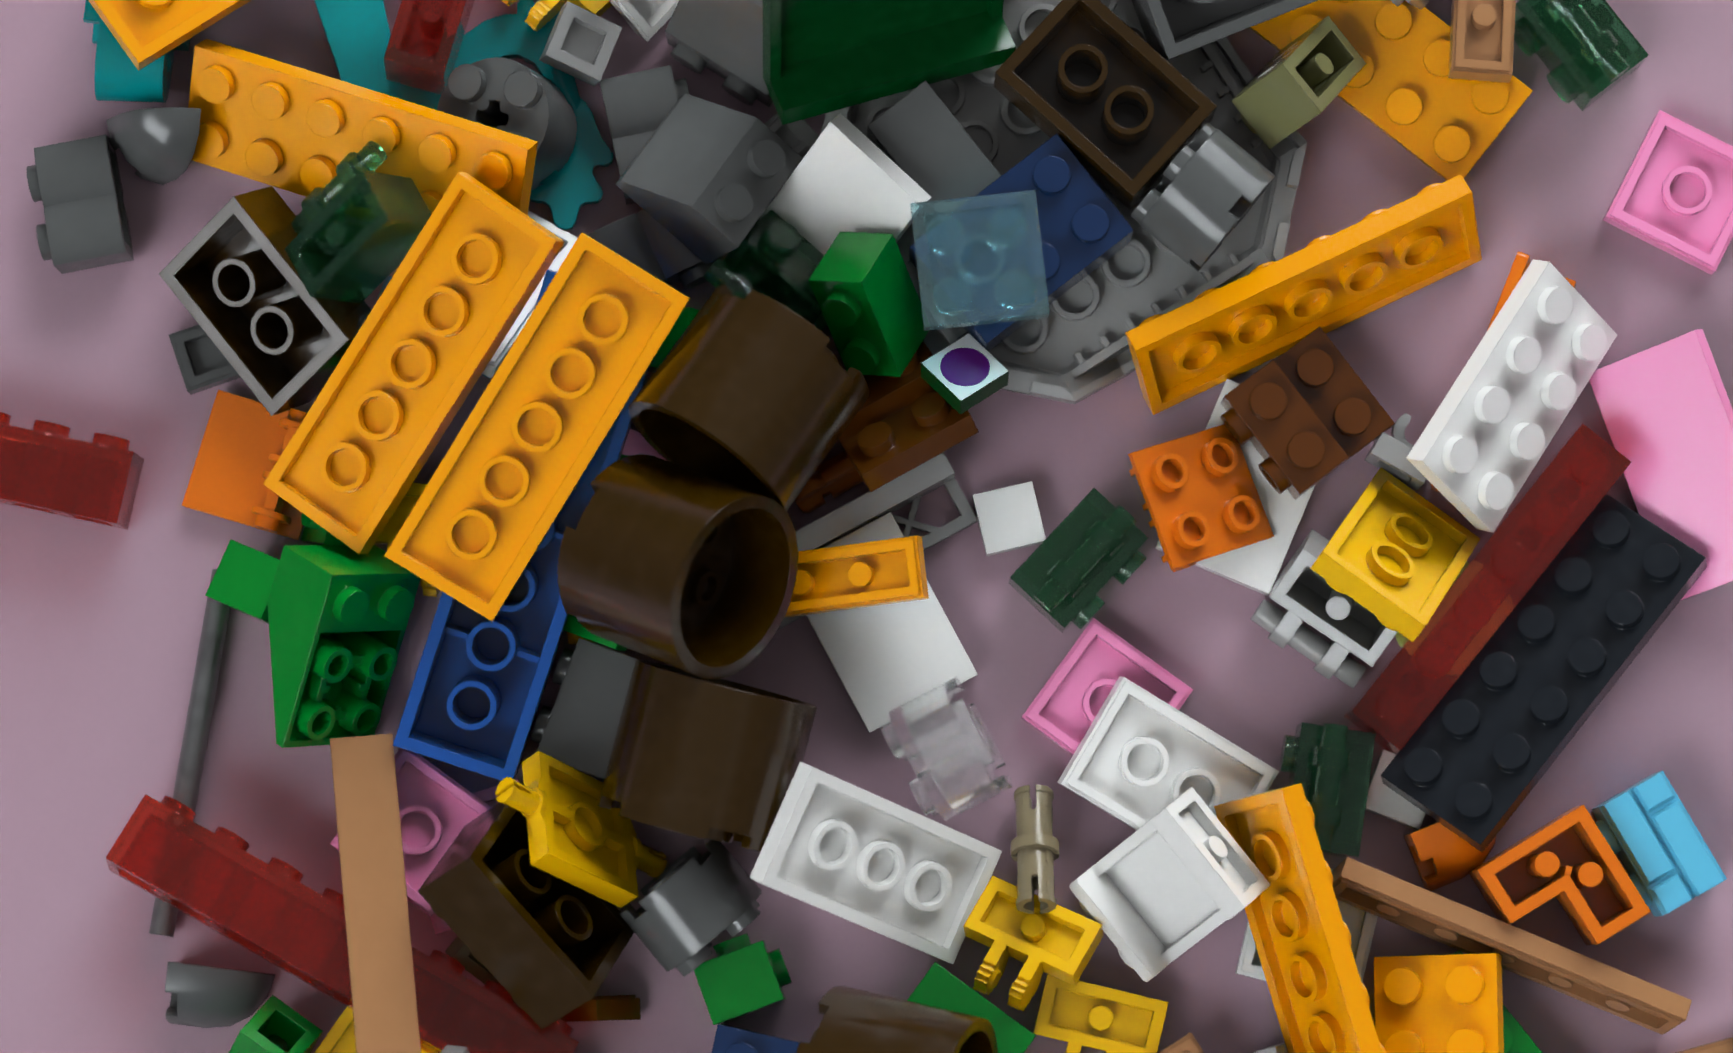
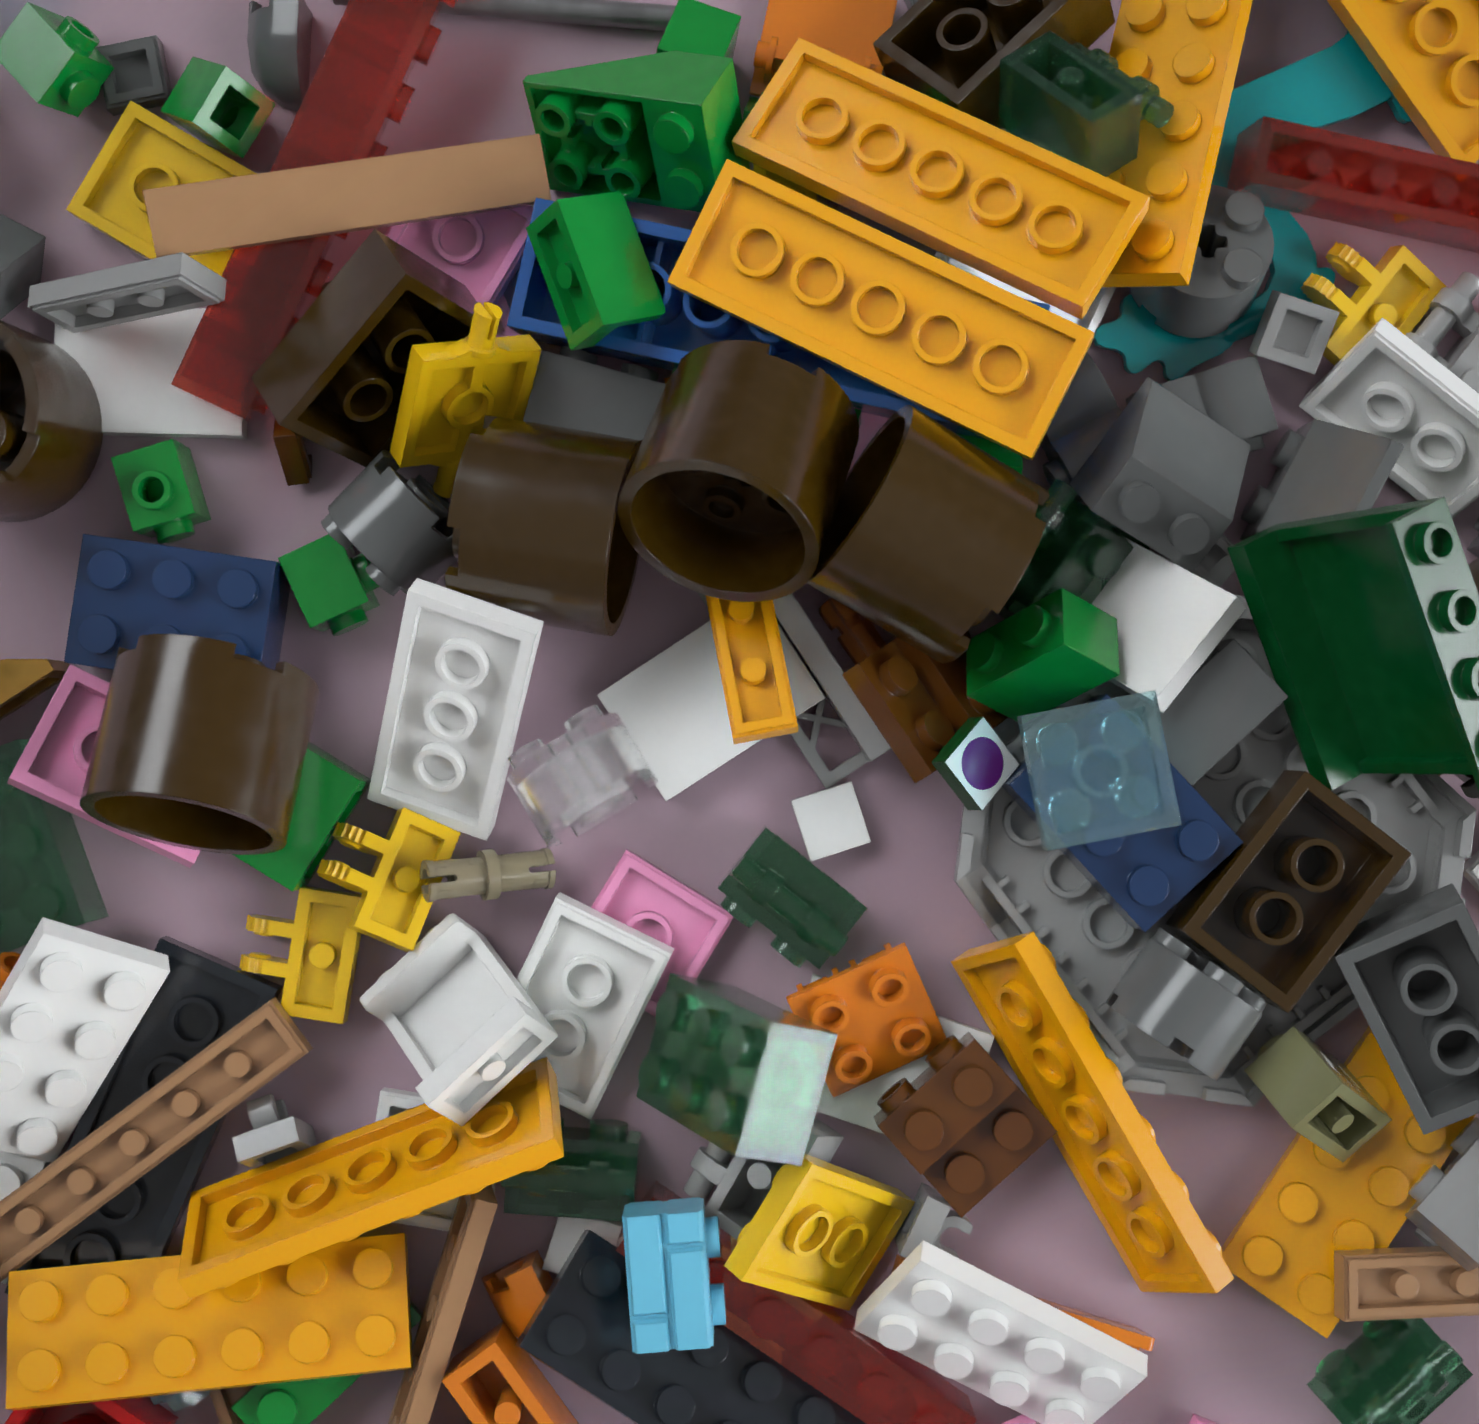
camera: 75 degrees right, 5 degrees up
(469, 691) = (594, 267): none -> green panel
(1233, 621) = (736, 1069): none -> clear green brick
(1420, 693) = (670, 1275): none -> medium azure brick

